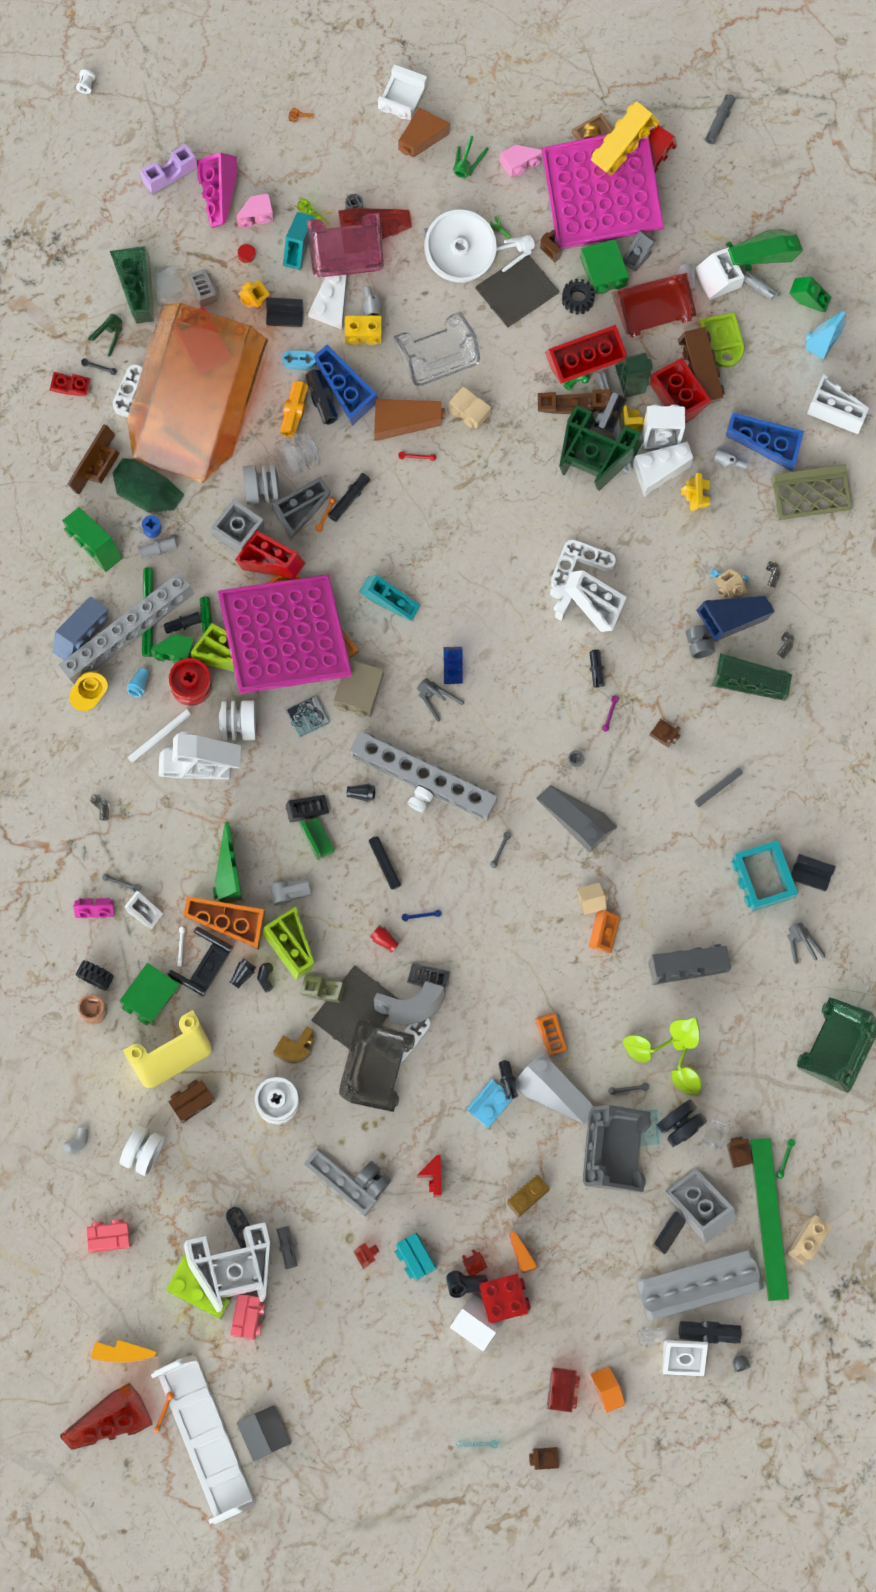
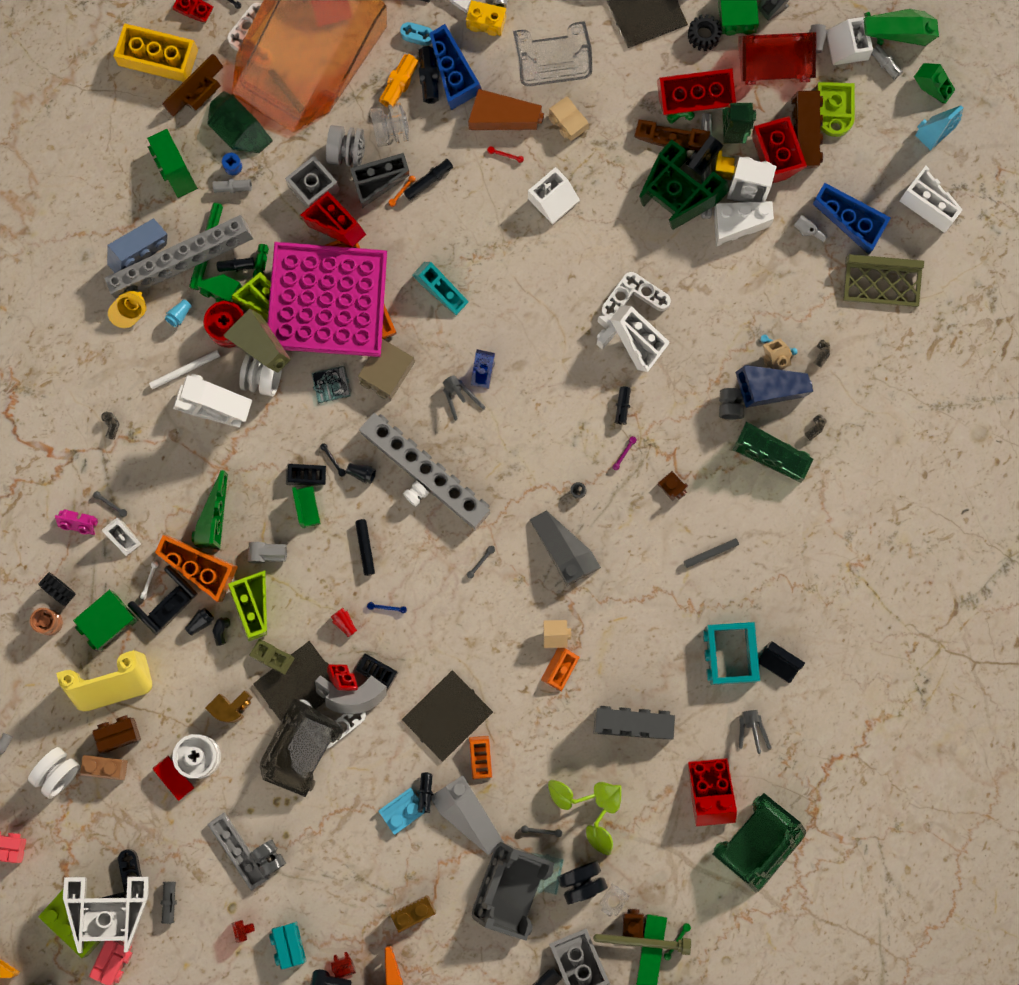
camera: 20 degrees right, 5 degrees up
(46, 436) = (155, 52): none -> yellow brick
(188, 1134) = (103, 767): none -> medium nougat brick
(229, 686) = (257, 339): none -> olive slope
(259, 1128) = (173, 780): none -> red slope
(341, 797) = (341, 472): none -> black hinge
(397, 989) = (341, 677): none -> red slope
(433, 1170) = (329, 864): red slope -> none
(475, 484) = (553, 195): none -> white slope
(508, 1003) = (447, 716): none -> clear smoke piece
(694, 492) = (765, 253): yellow hips -> none
(781, 1010) = (712, 792): none -> red slope
(792, 1159) = (682, 946): none -> olive piece

